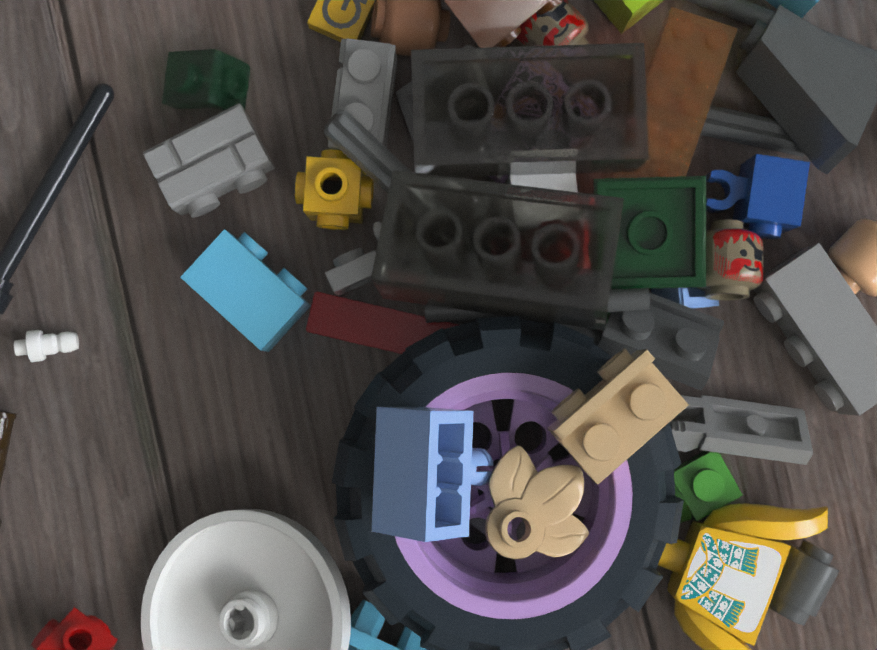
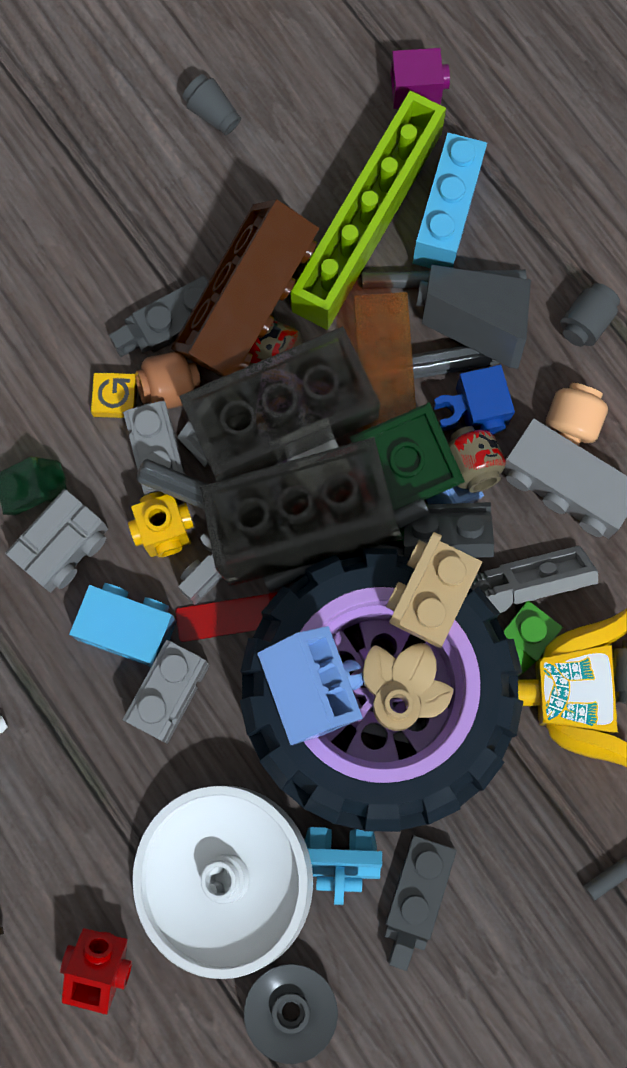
camera: 20 degrees left, 10 degrees down
(264, 386) = (166, 691): none -> light grey brick

